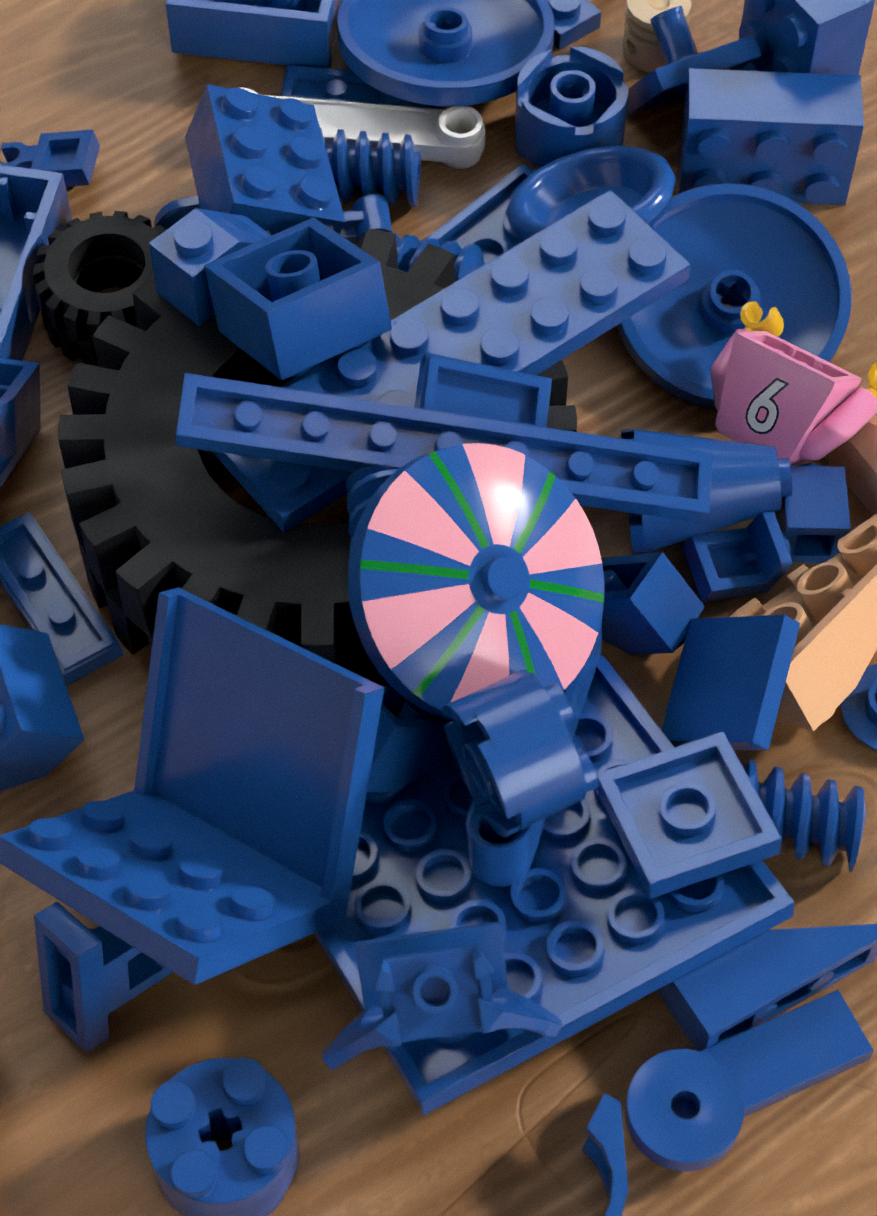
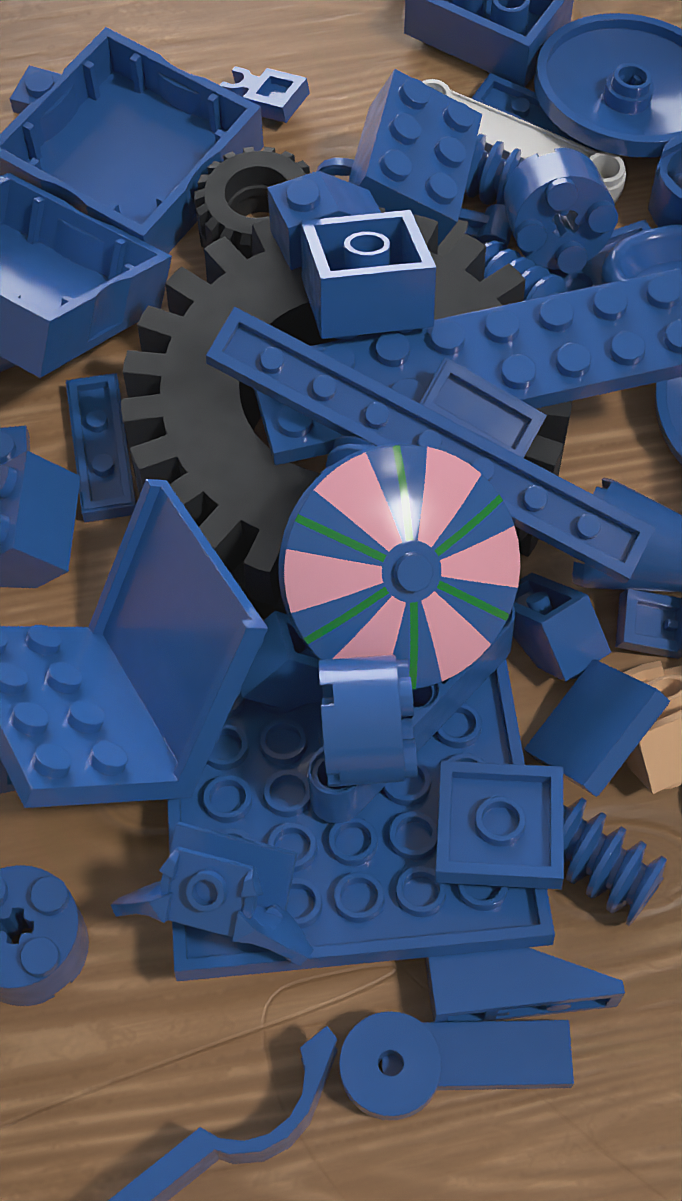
camera: 25 degrees right, 5 degrees up
(440, 177) = (559, 209): none -> blue brick

